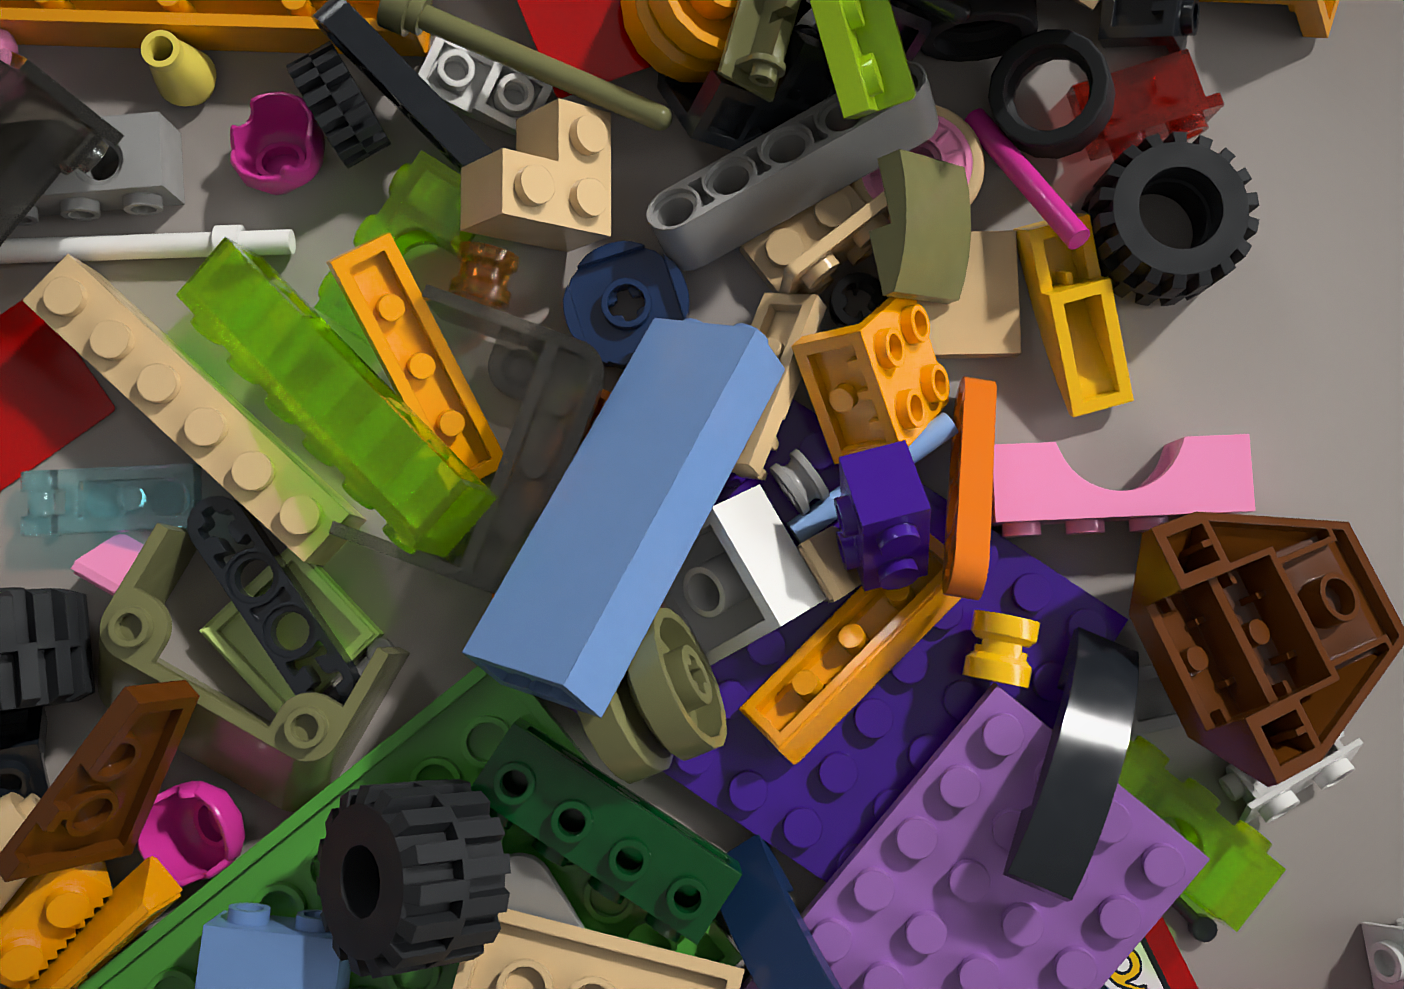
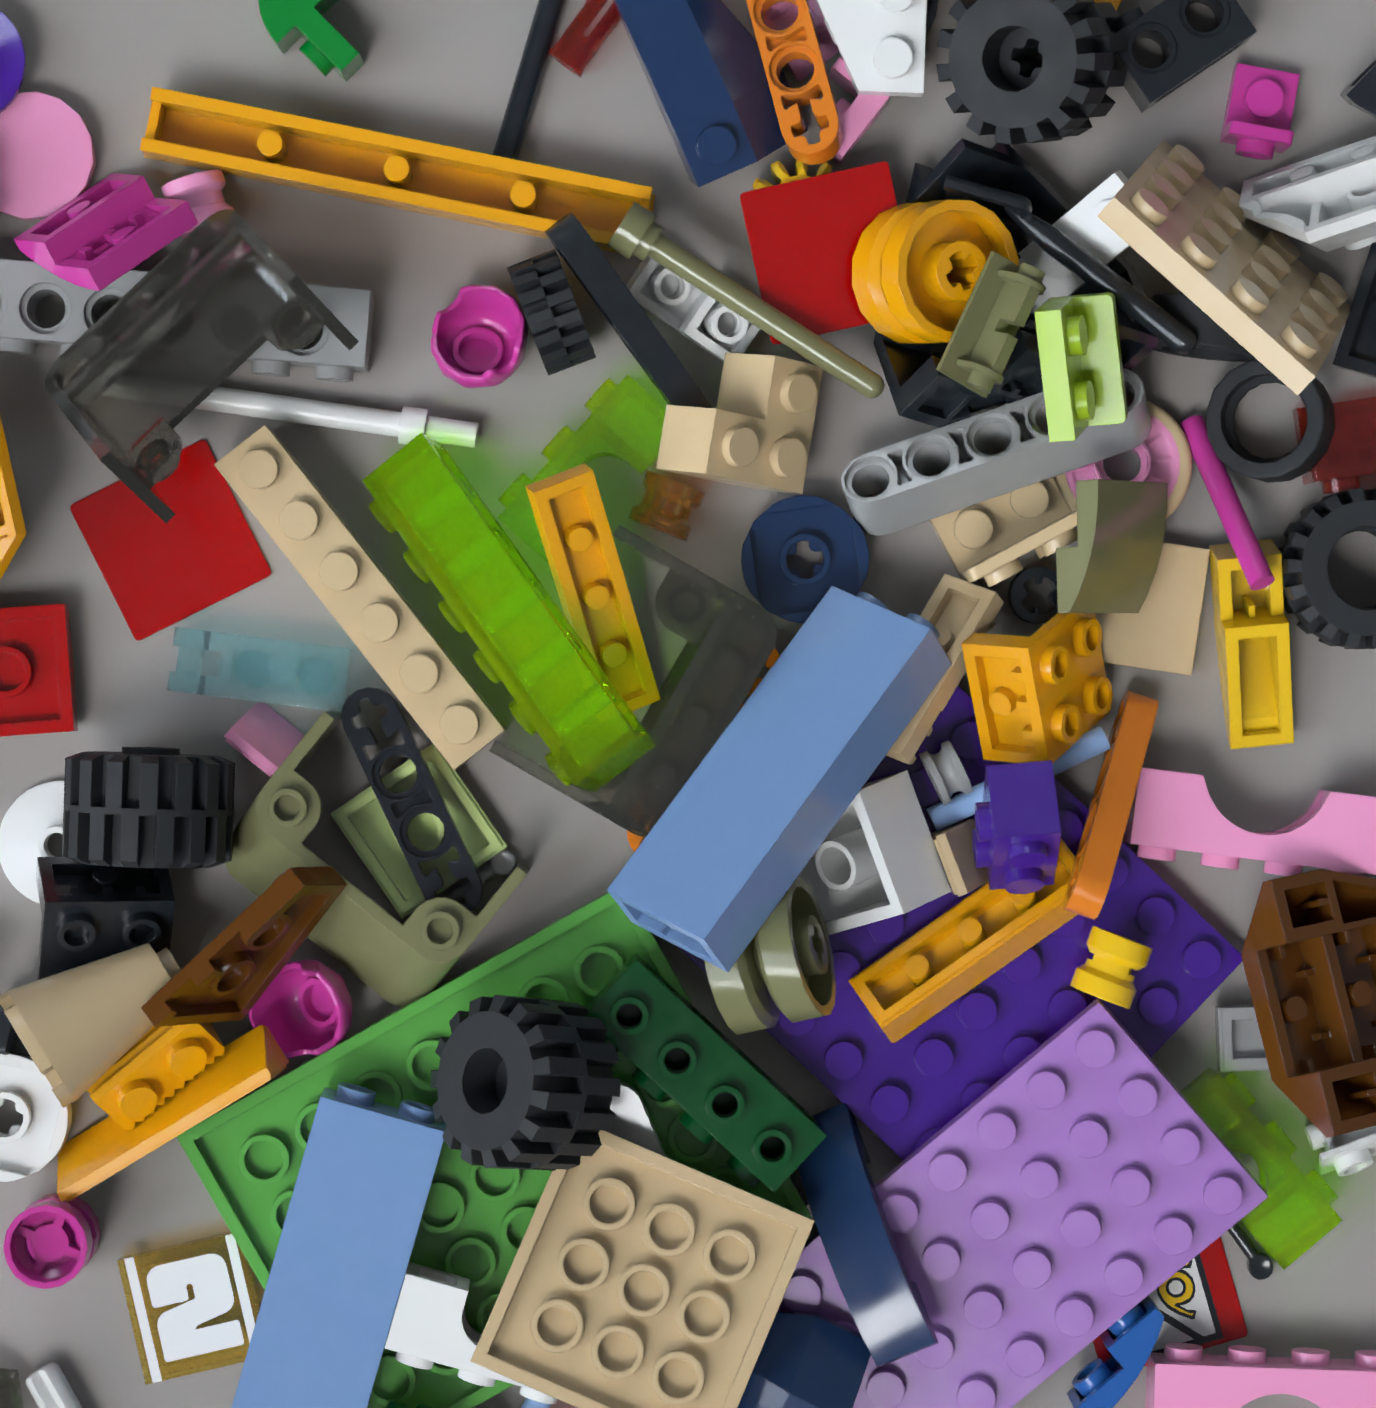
camera: 10 degrees right, 5 degrees up
(179, 70) = (399, 256): light yellow cone -> none
(1079, 768) = (1161, 1086): black slope -> none

